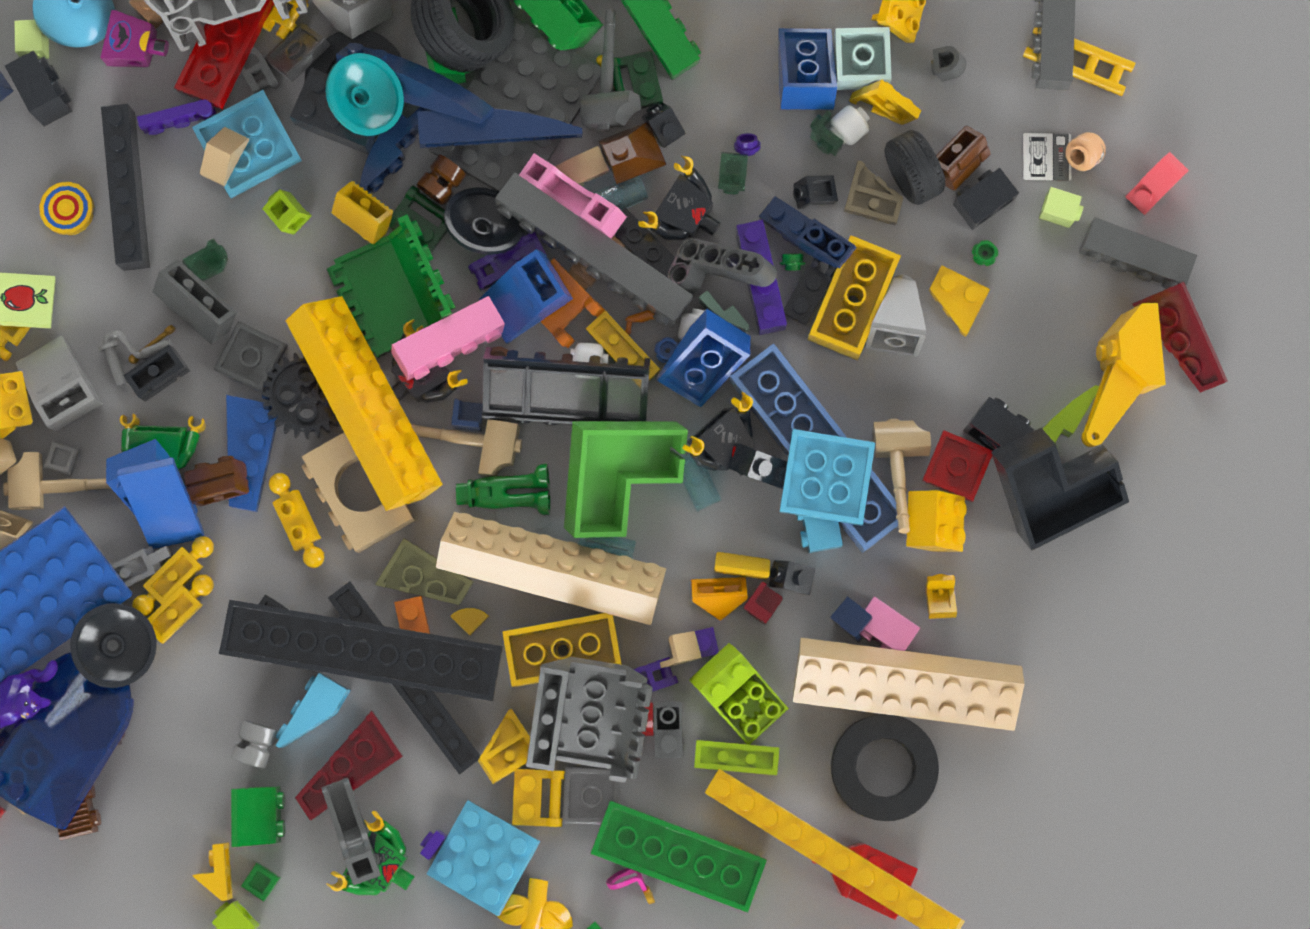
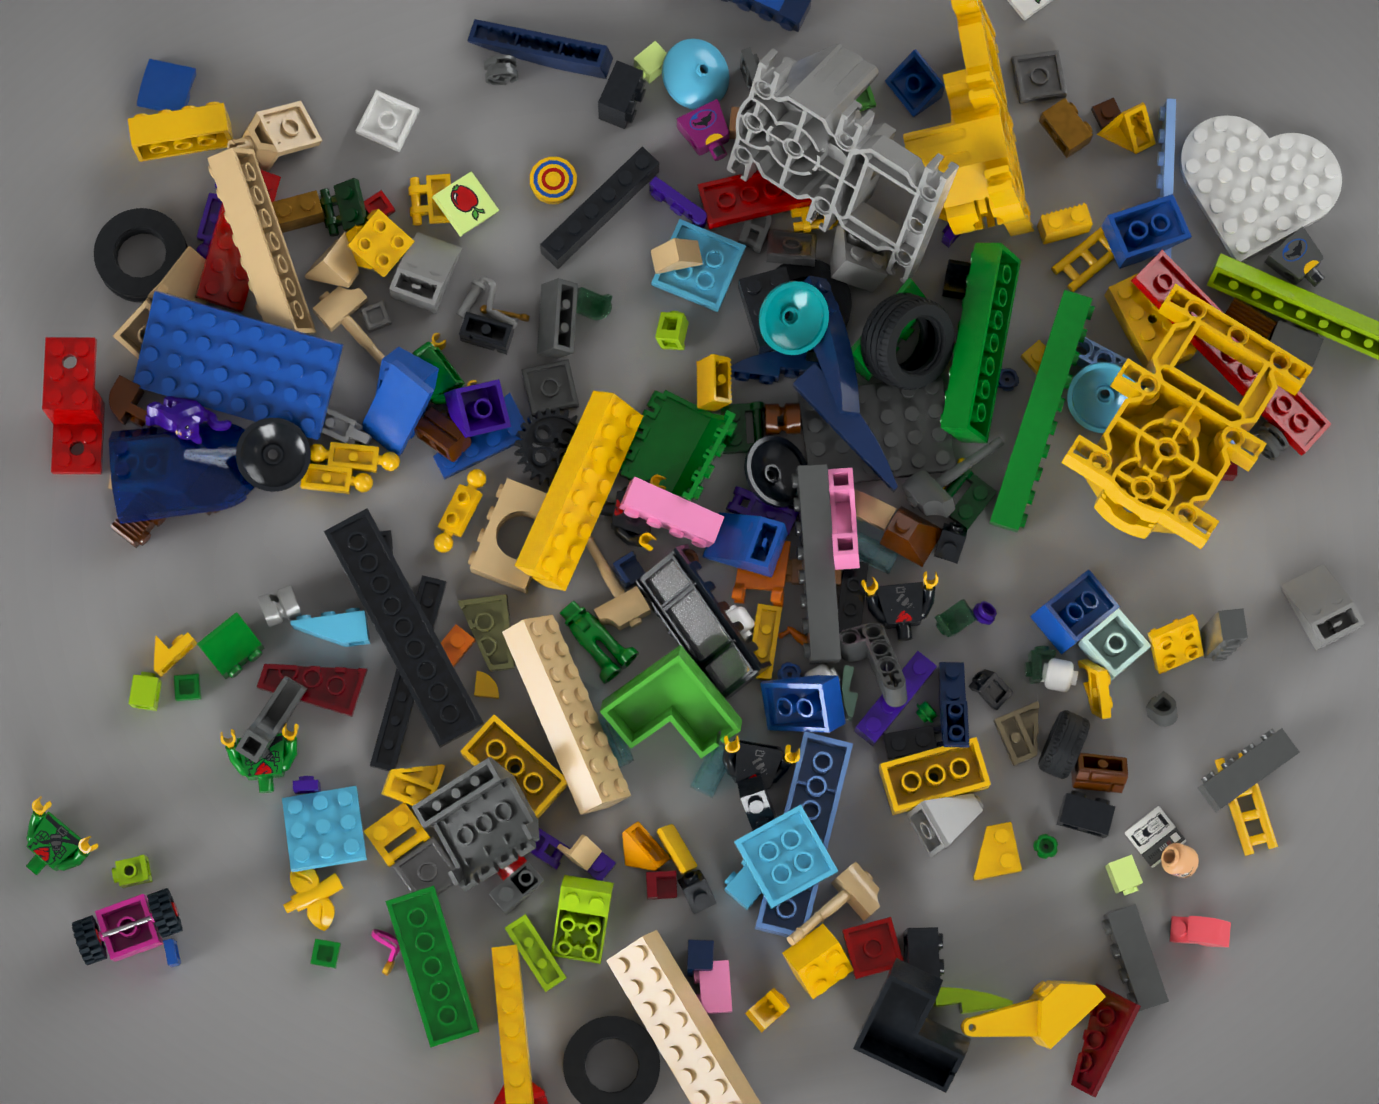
camera: 45 degrees right, 5 degrees down
(219, 432) = (478, 408): none -> dark purple slope

